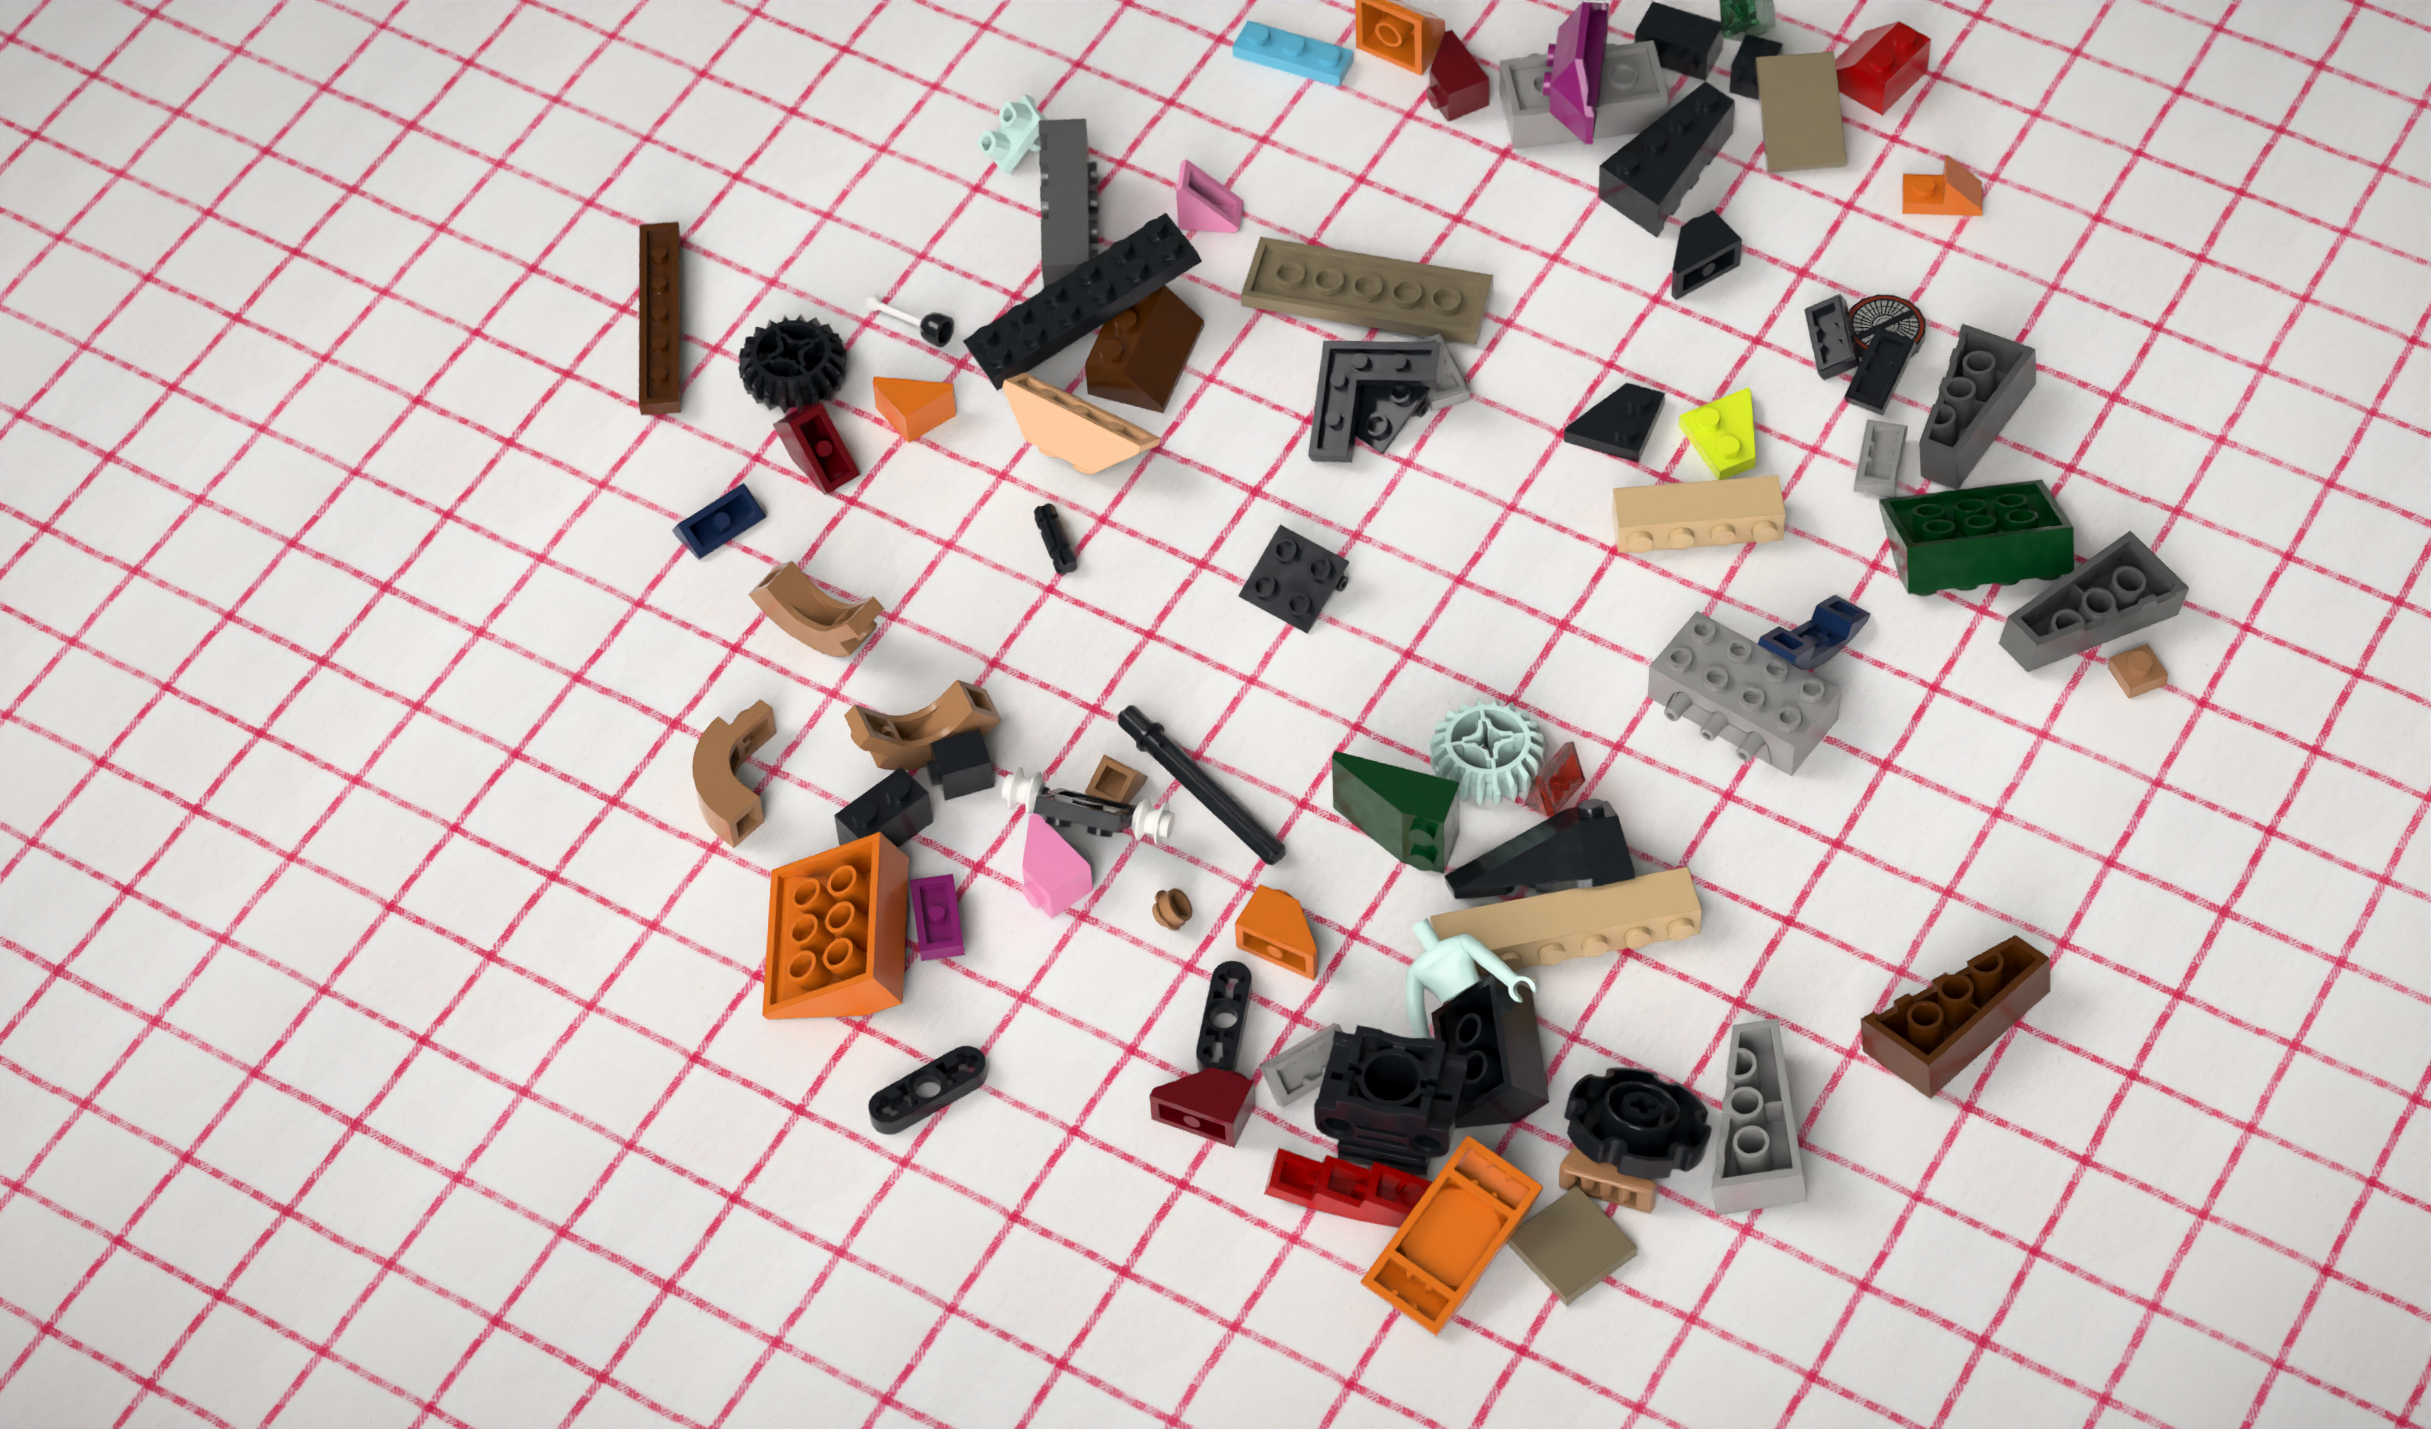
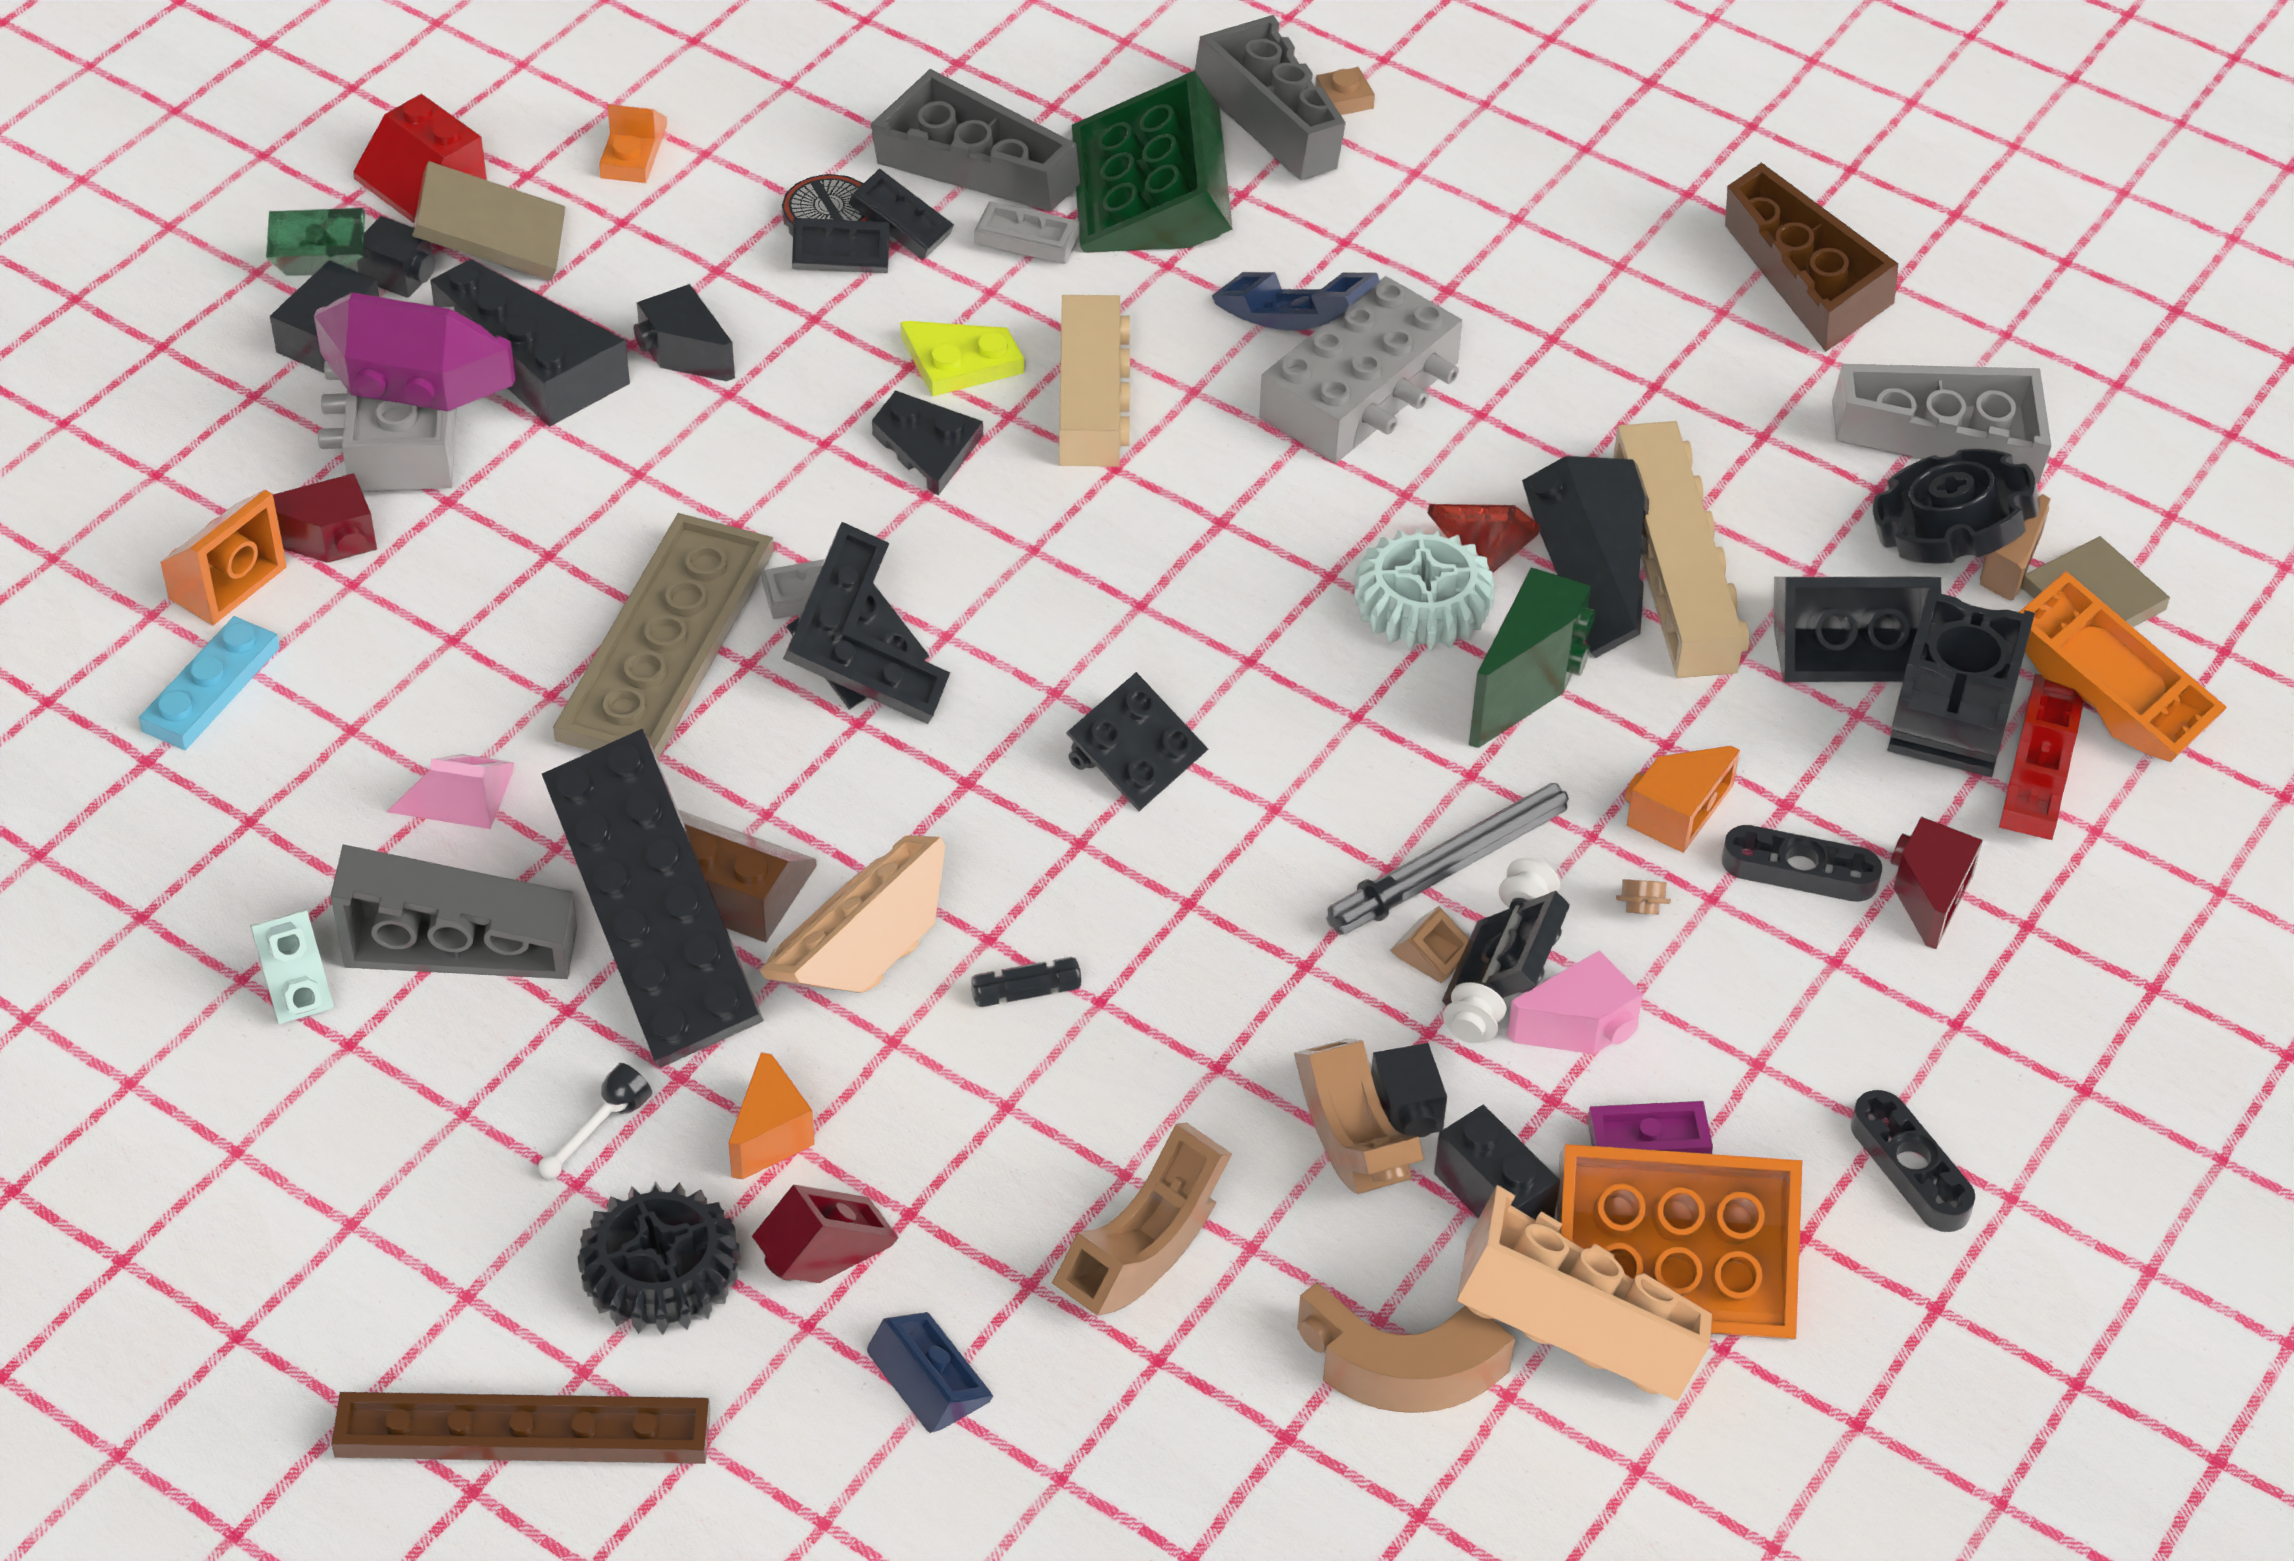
camera: 90 degrees left, 5 degrees down
(761, 844) = (1580, 1300): none -> light nougat wedge
(1299, 1067) = (1872, 784): light grey plate -> none
(1449, 970) = (1773, 628): light aqua piece -> none

